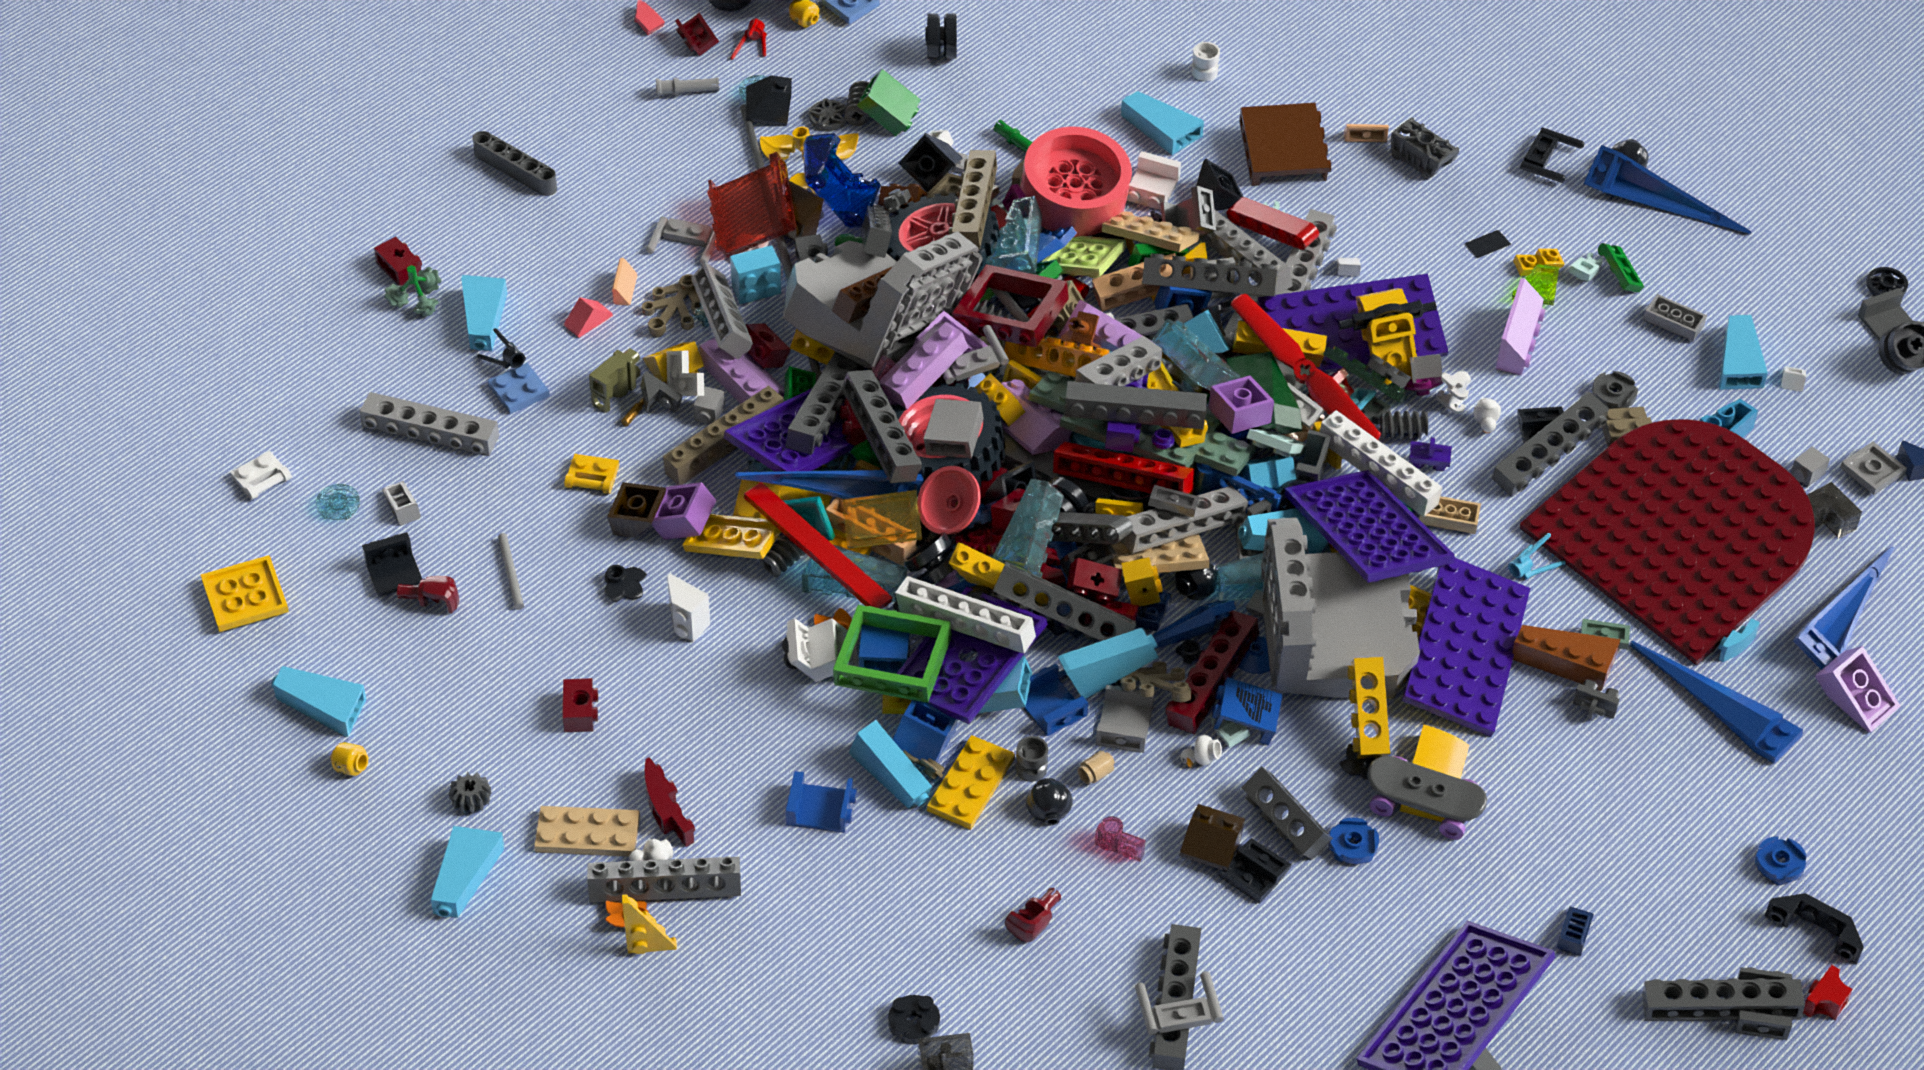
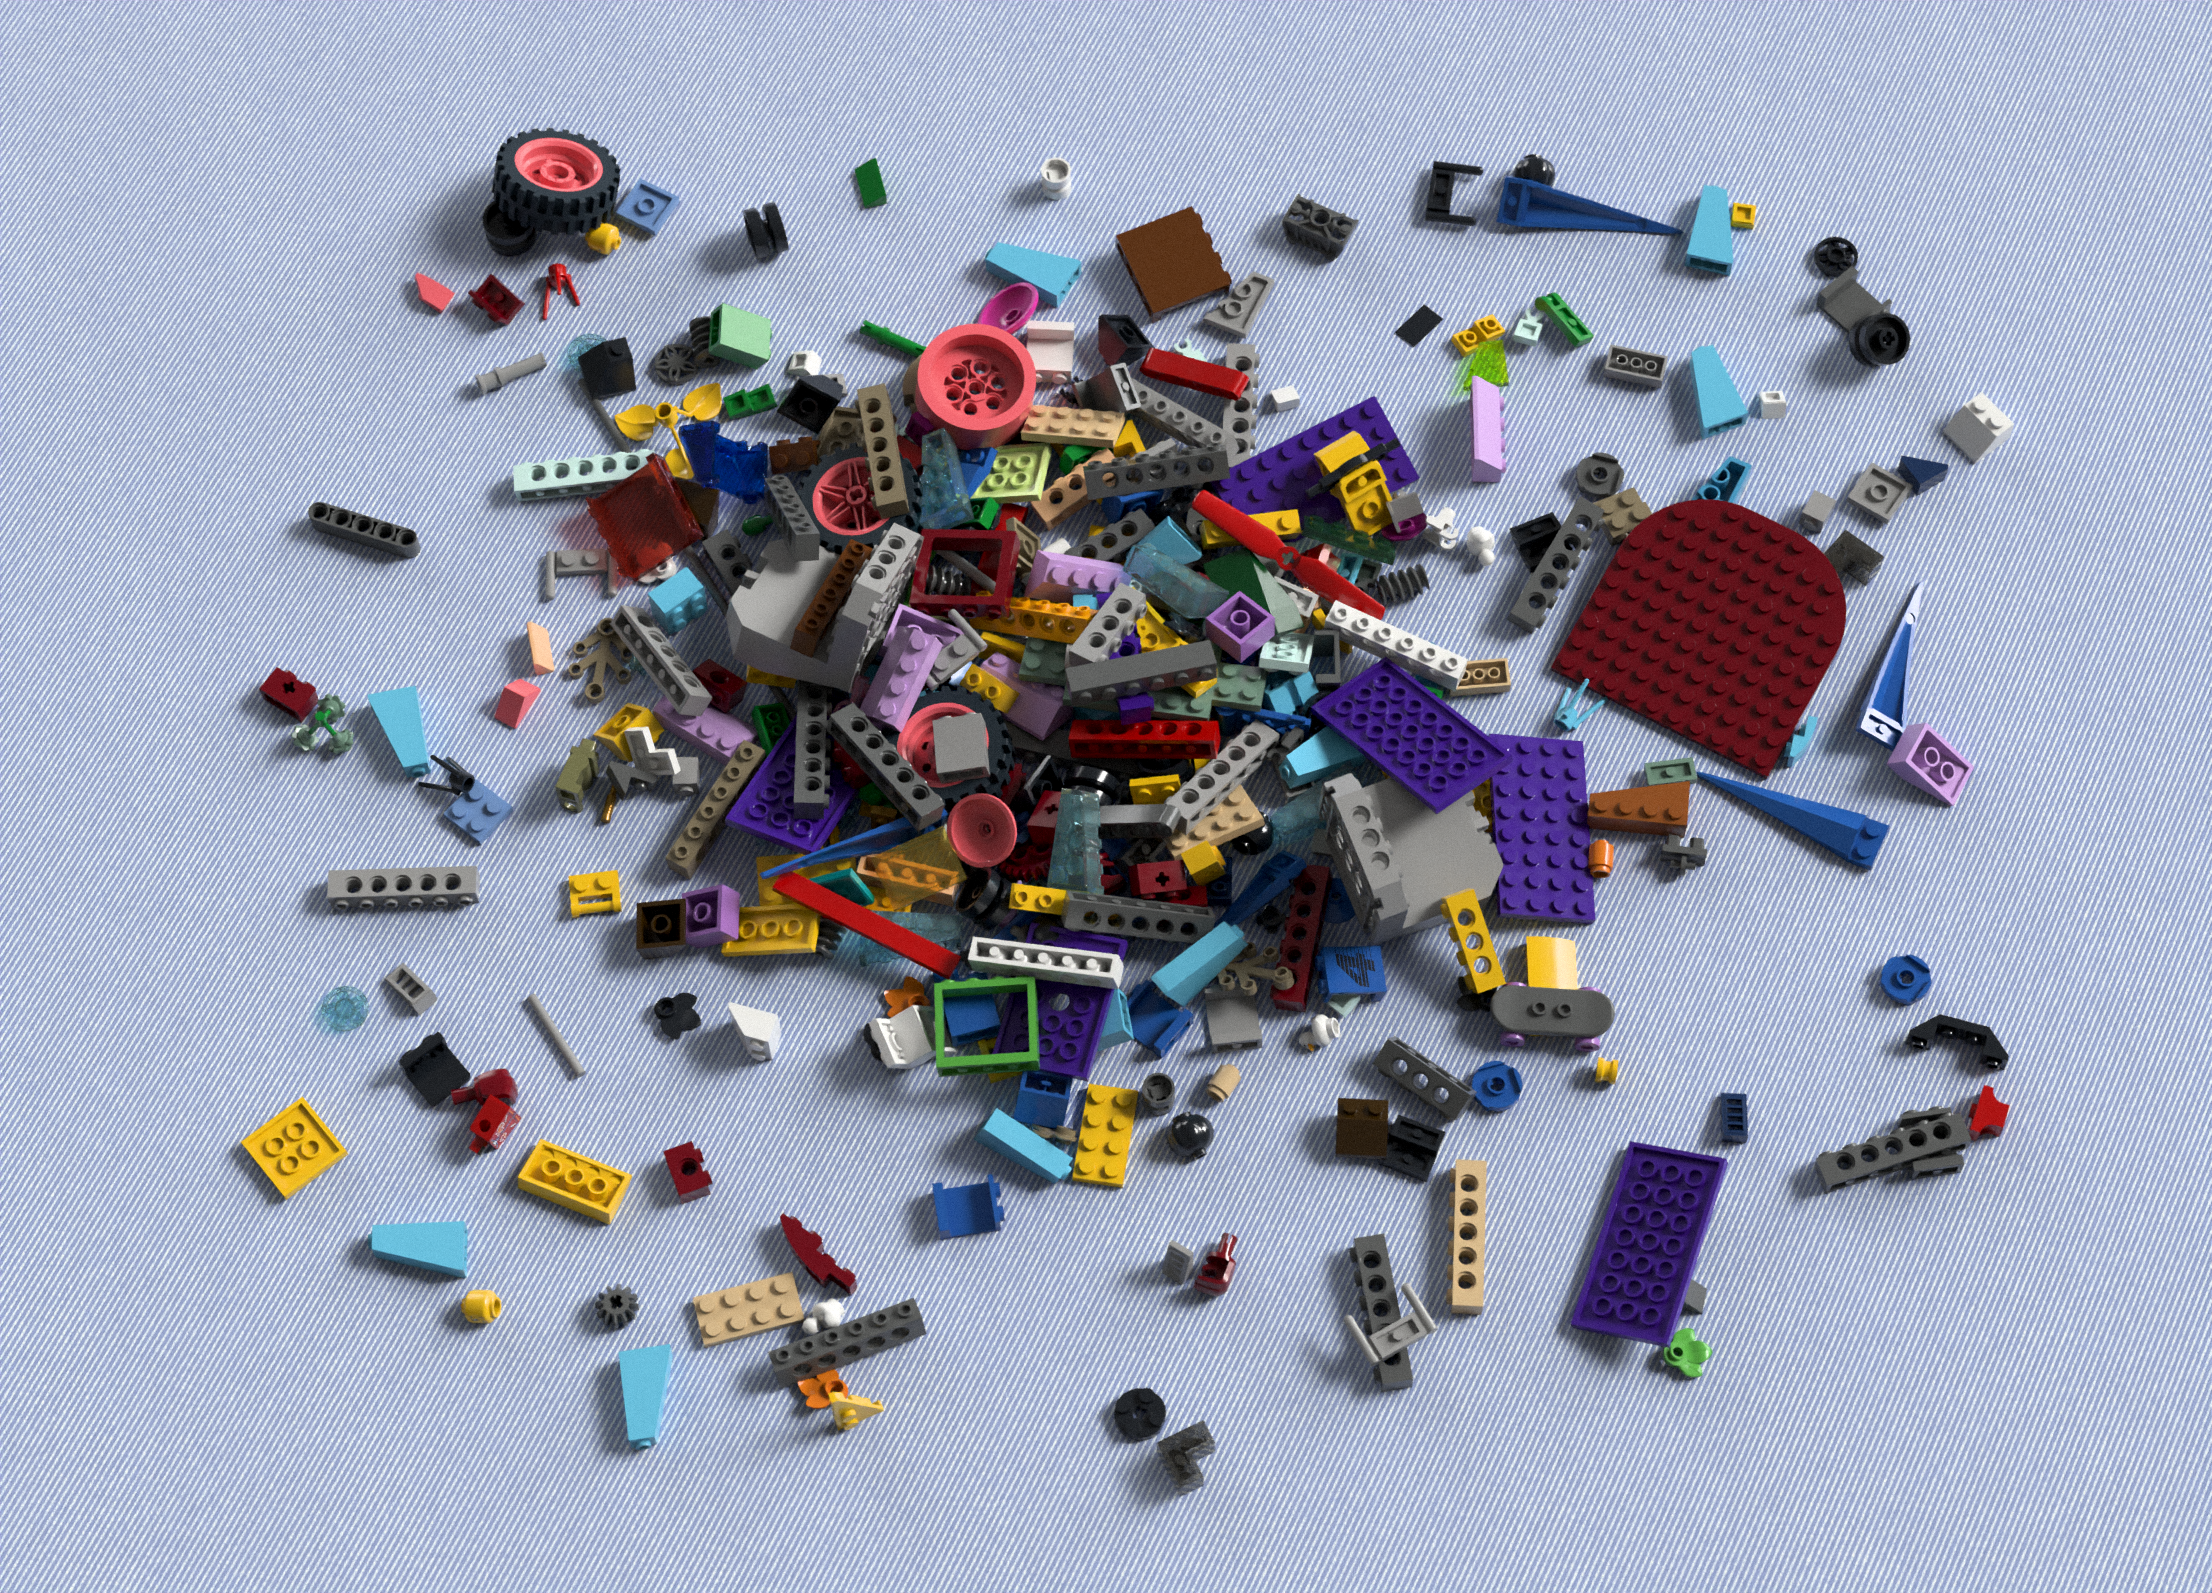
camera: 15 degrees left, 15 degrees up
(260, 474) = (246, 996): white plate -> none
(423, 619) = (492, 1125): none -> red torso
(475, 686) = (574, 1181): none -> yellow slope
(701, 166) = (574, 483): none -> light aqua brick
(875, 156) = (749, 403): none -> green slope
(896, 199) = (794, 464): dark grey plate -> none
(997, 898) = (1178, 1262): none -> light grey slope
(1045, 31) = (871, 184): none -> green slope
(1084, 328) = (1055, 586): dark orange bracket -> none
(1119, 841) = (1282, 1161): clear pink plate -> none
(1135, 139) = (1010, 307): none -> dark pink dish
(1162, 438) = (1176, 696): dark purple plate -> none
(1173, 501) = (1210, 765): flat silver plate -> none
(1266, 1010) = (1473, 1174): none -> tan brick
(1334, 192) = (1242, 307): none -> light grey wing
(1366, 133) = (1252, 222): light nougat slope -> none
(1388, 371) = (1367, 529): dark grey plate -> none
(1430, 454) = (1439, 612): dark purple hips -> none
(1463, 856) = (1606, 1070): none -> yellow wheel
(1516, 684) = (1600, 858): none -> orange brick
(1775, 237) = (1711, 235): none -> medium azure slope
(1810, 233) = (1743, 215): none -> yellow tile

